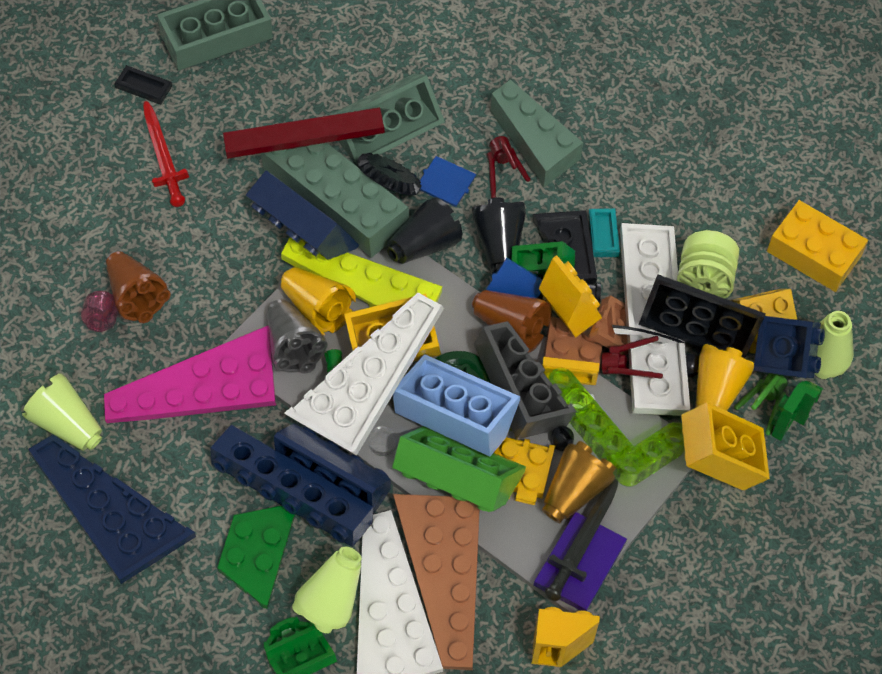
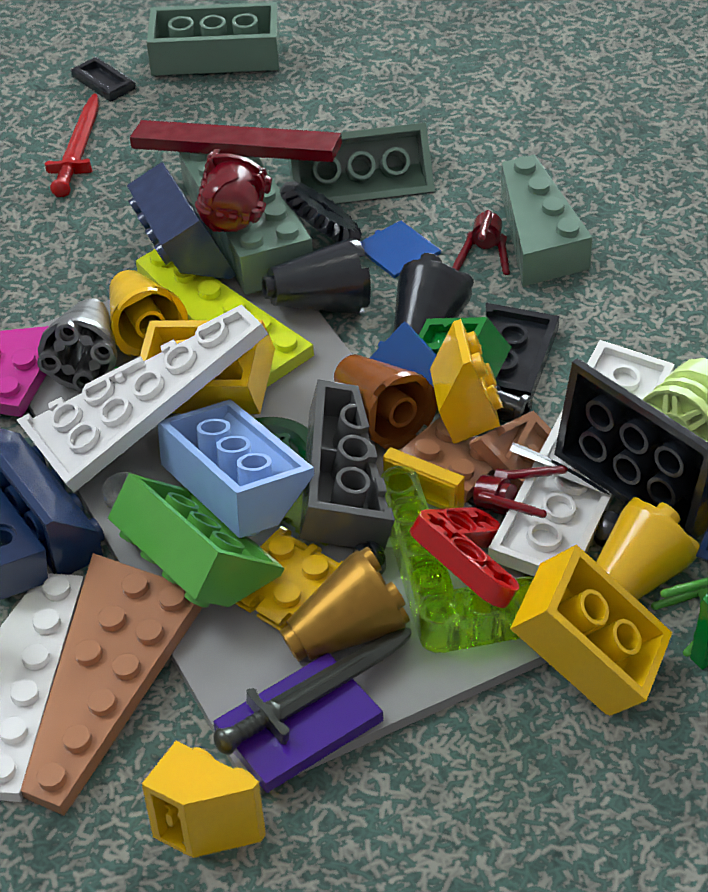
camera: 30 degrees right, 15 degrees down
(343, 191) = (228, 193): none -> dark red helmet
(604, 232) = (574, 342): teal tile -> none
(614, 415) = (456, 541): none -> red beam

